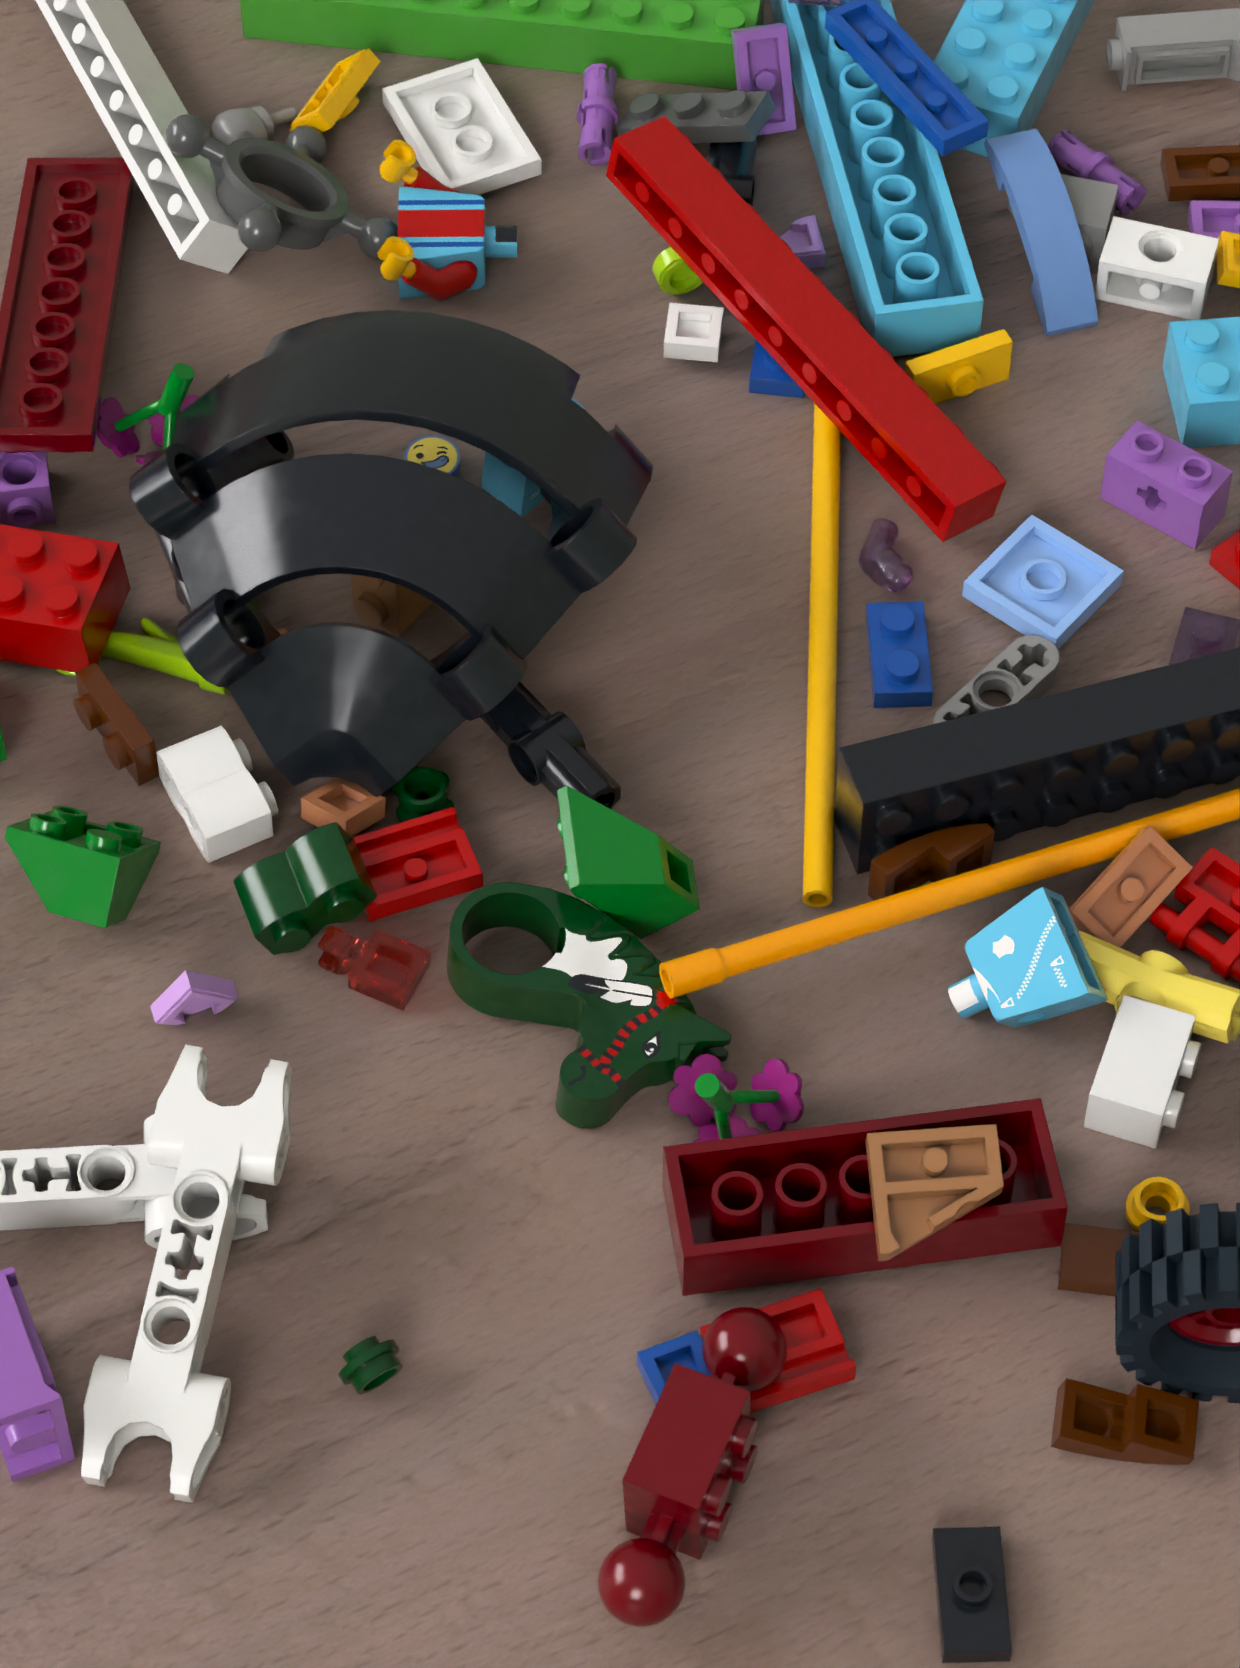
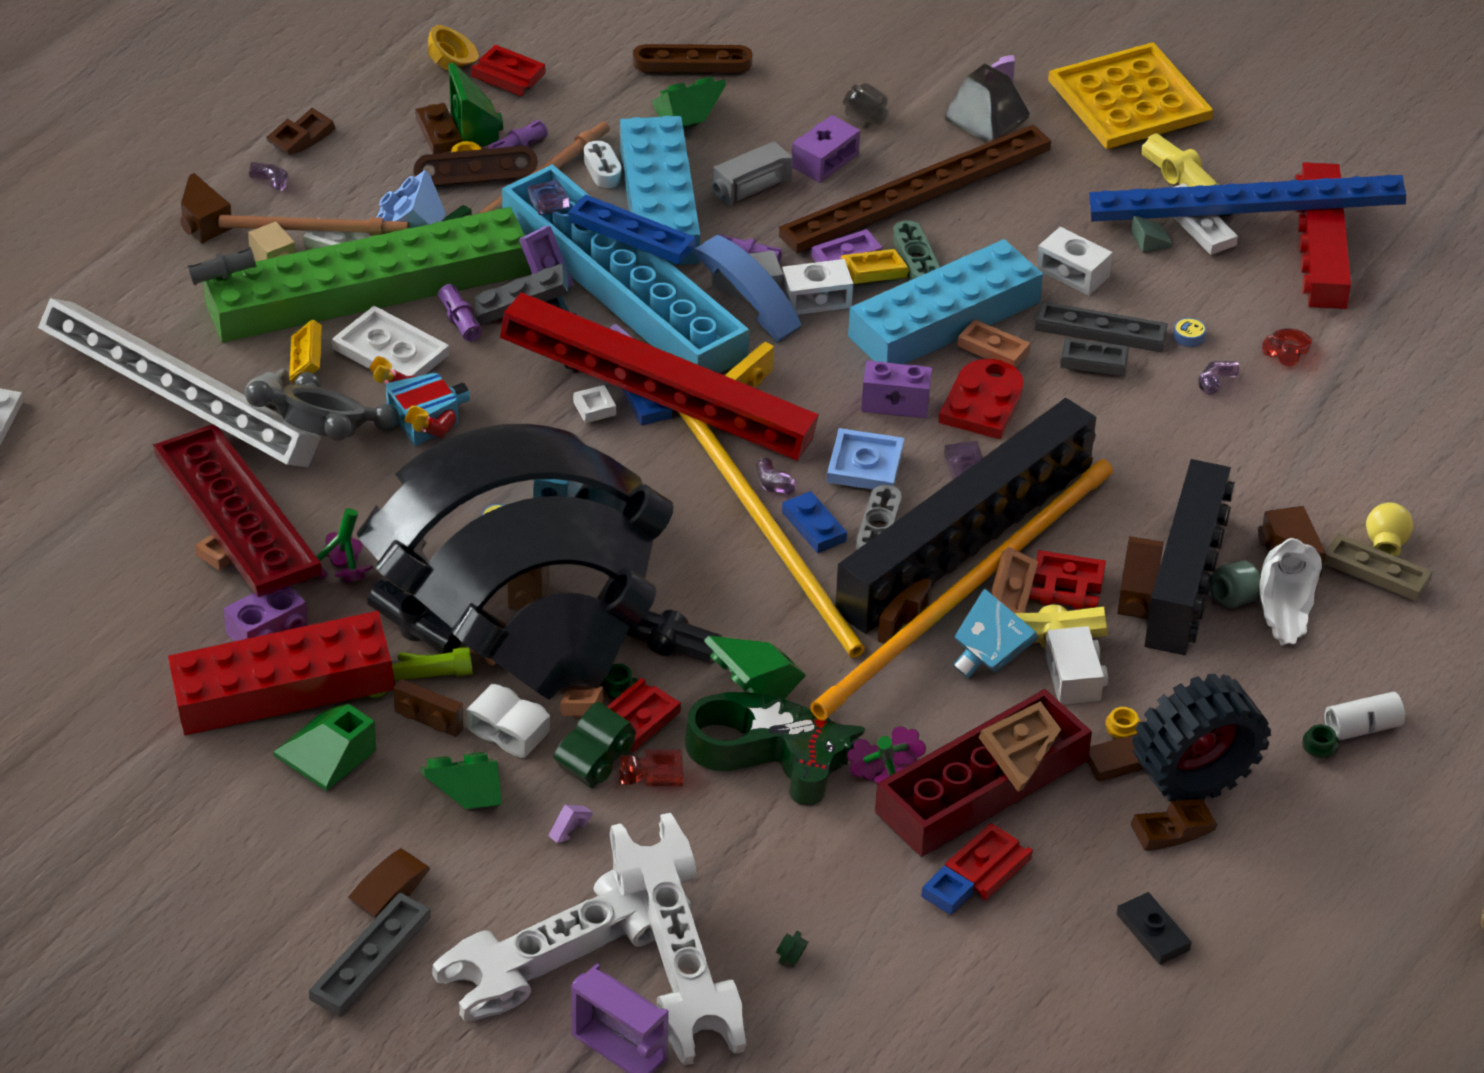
camera: 30 degrees left, 10 degrees down
(674, 274) = (564, 377): lime tile -> none
(688, 1465) = (990, 920): dark red brick -> none

